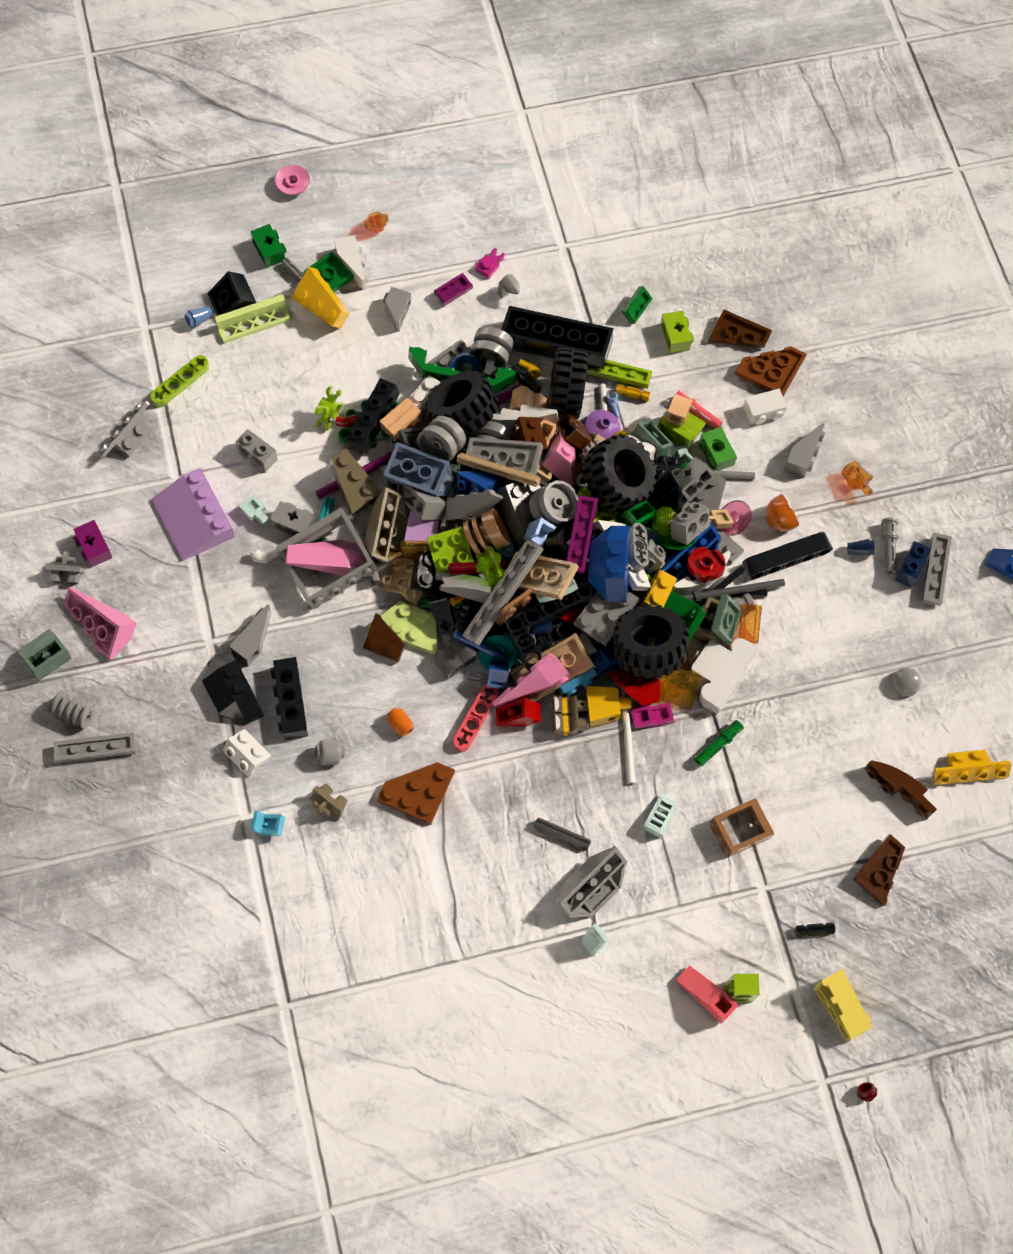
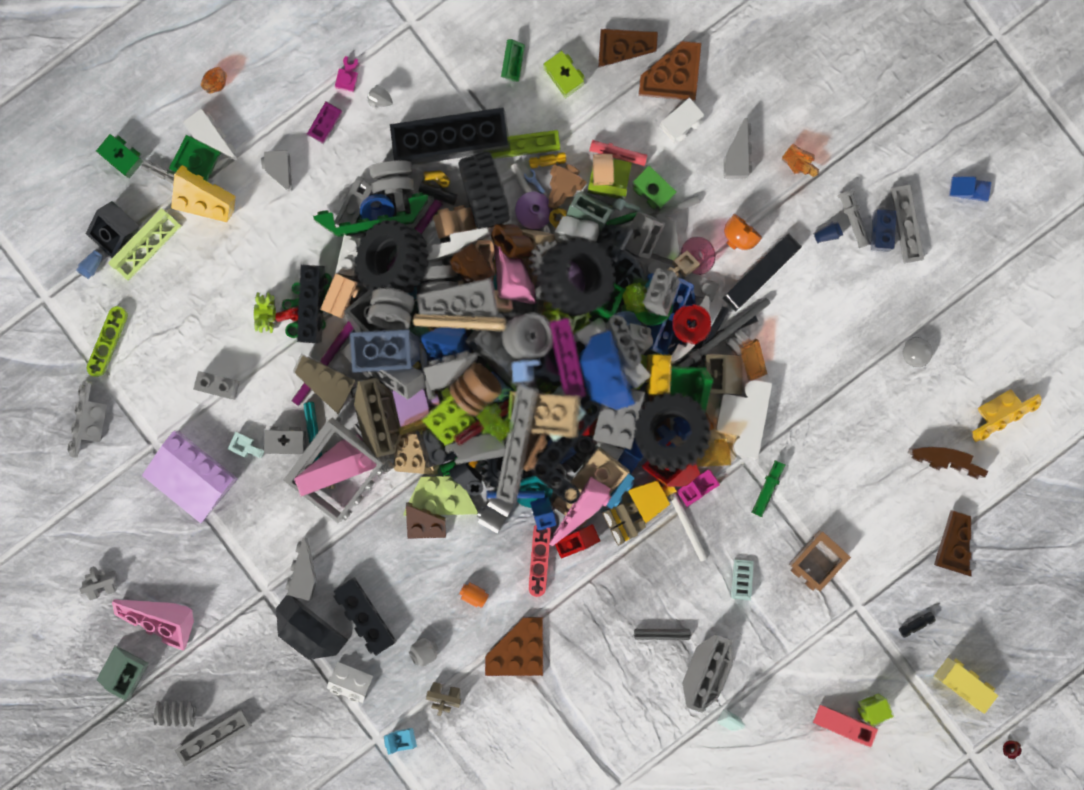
camera: 15 degrees left, 20 degrees up
(88, 534) = (121, 549): magenta brick -> none
(261, 557) = (275, 488): white arm -> none
(292, 174) = (101, 62): bright pink dish -> none
(638, 412) = (564, 184): none -> medium nougat rock
(726, 619) = (732, 373): sand green plate -> none

